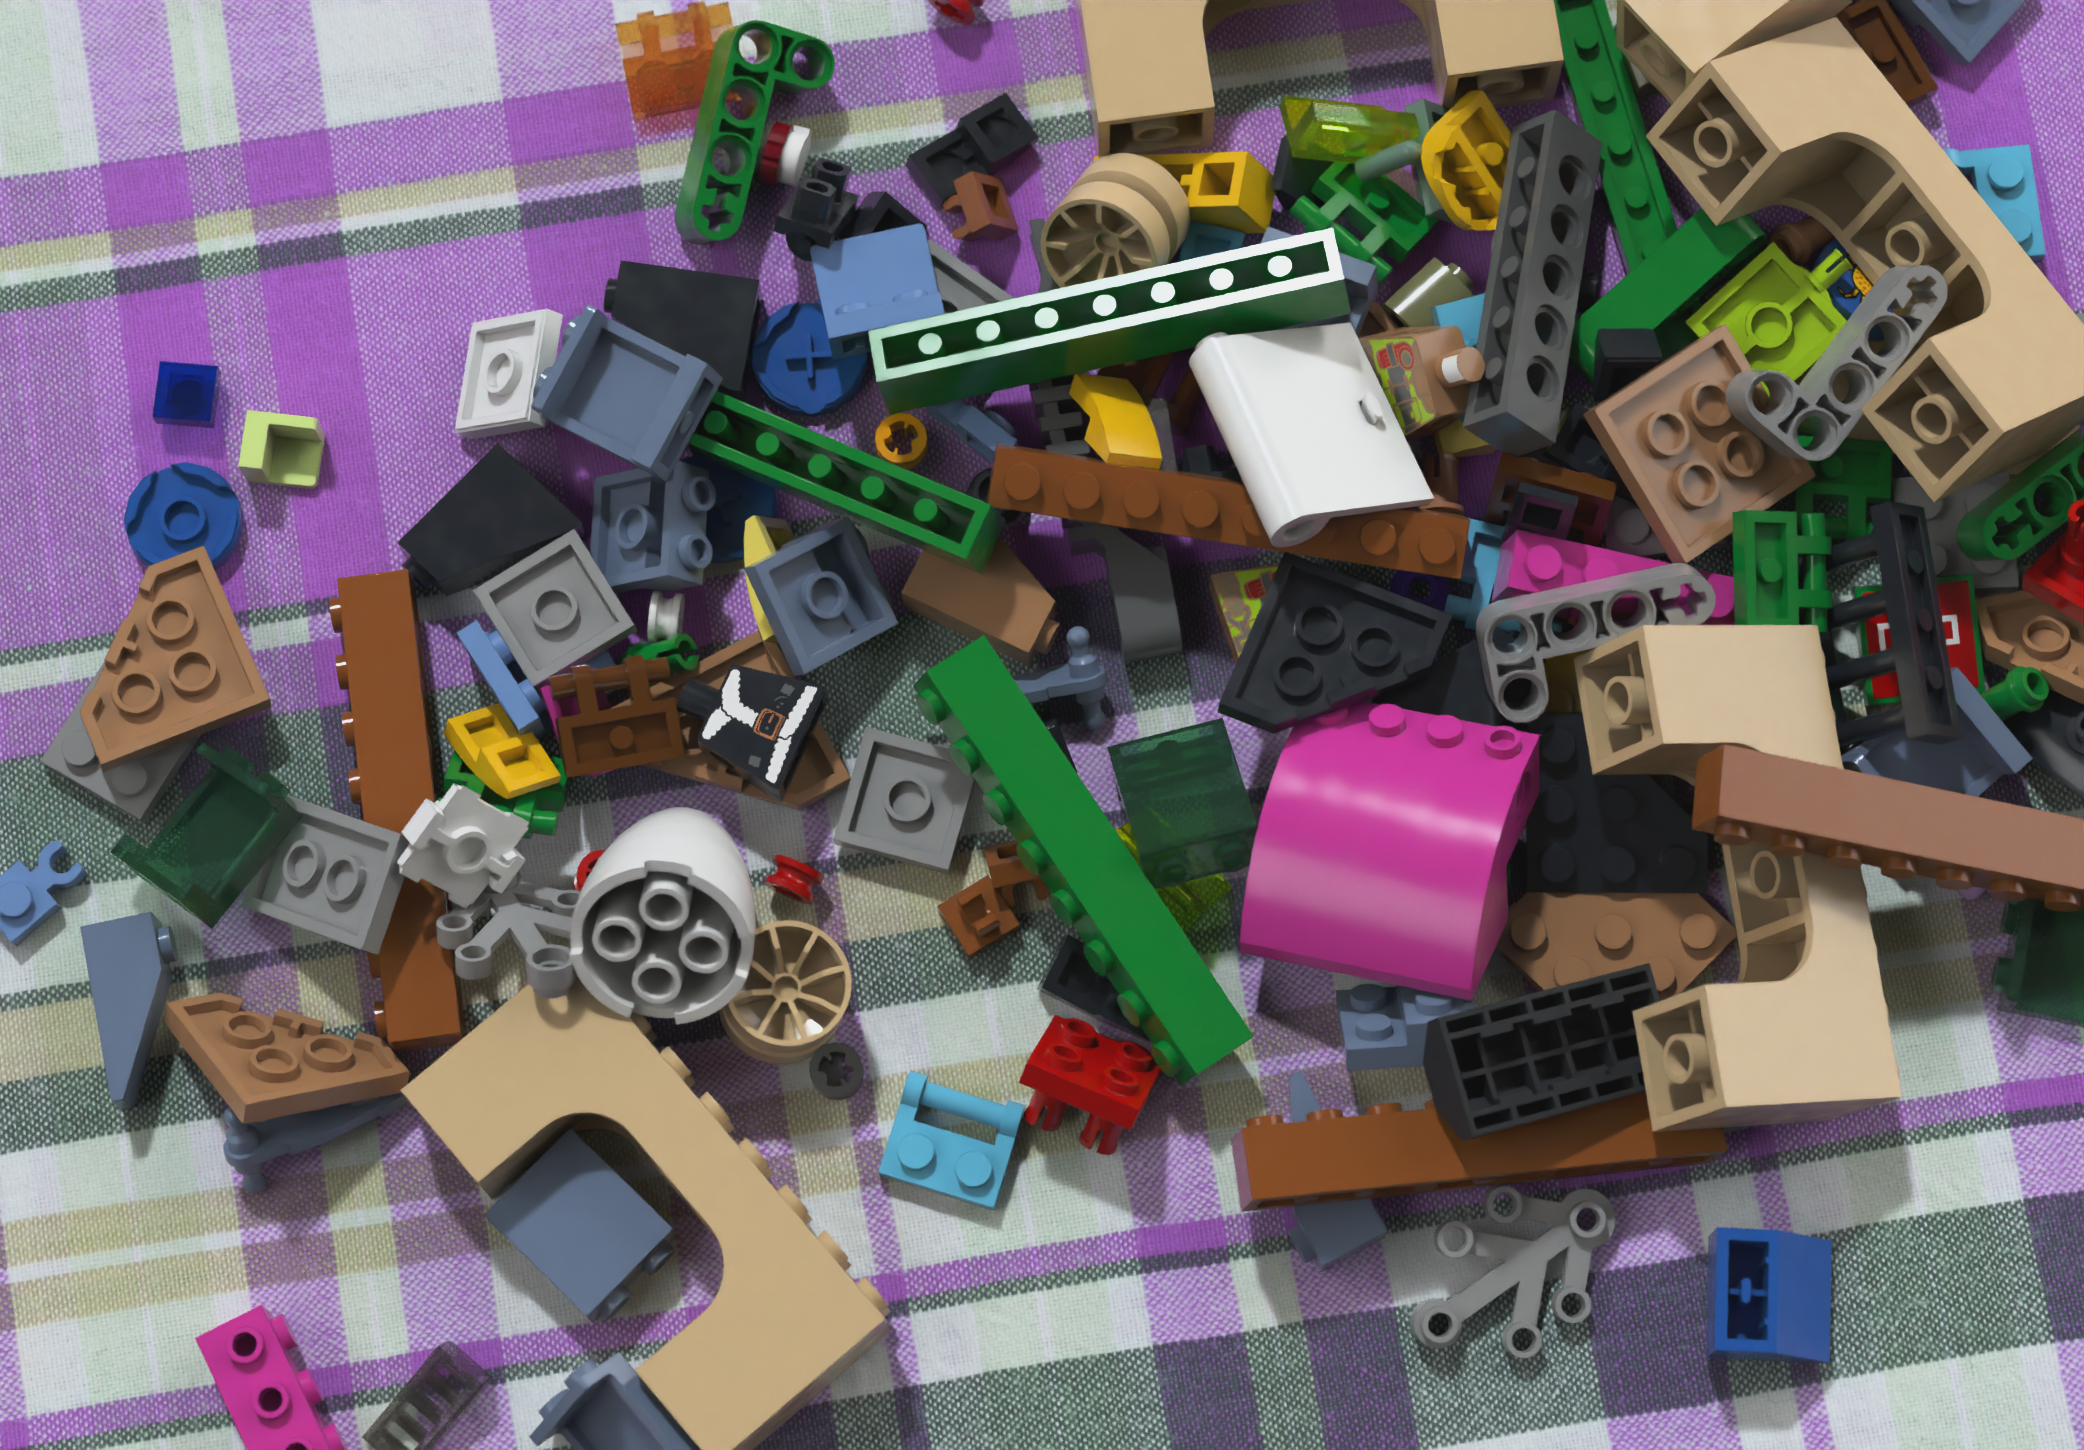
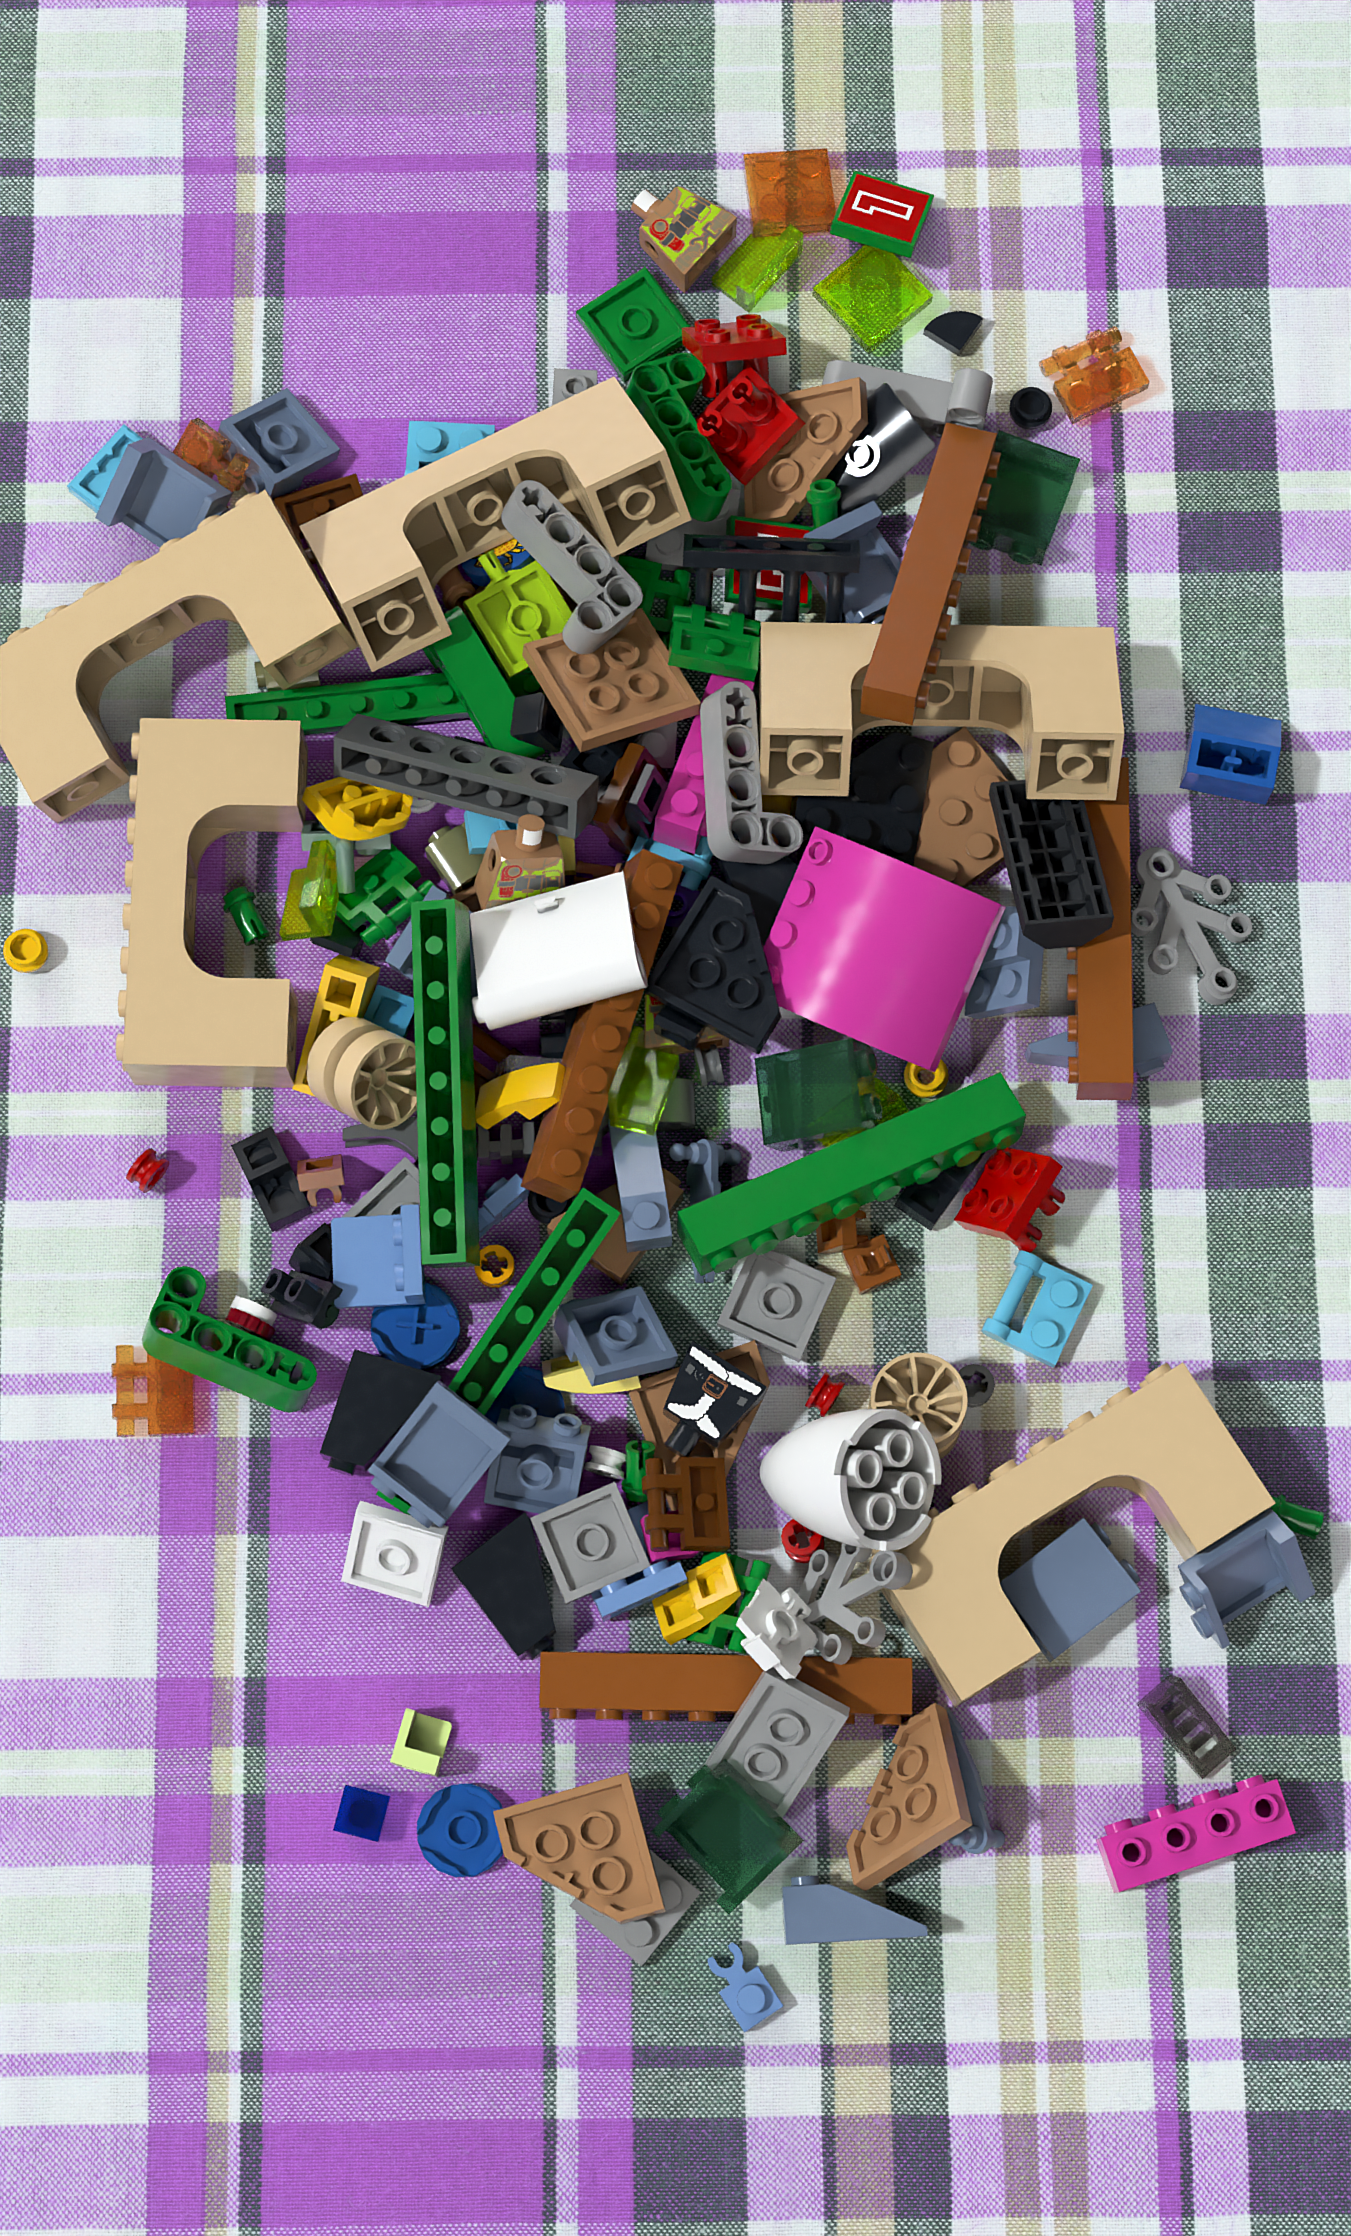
camera: 85 degrees left, 0 degrees up
(1024, 590) = (640, 1190): none -> sand blue slope
(1155, 570) = (641, 1086): none -> clear neon green panel
(1208, 666) = (708, 1065): none -> dark grey bush
(1229, 964) = (921, 1089): none -> yellow plate
(1240, 606) = (678, 1028): none -> black slope
(1312, 56) = (245, 915): none -> green pin

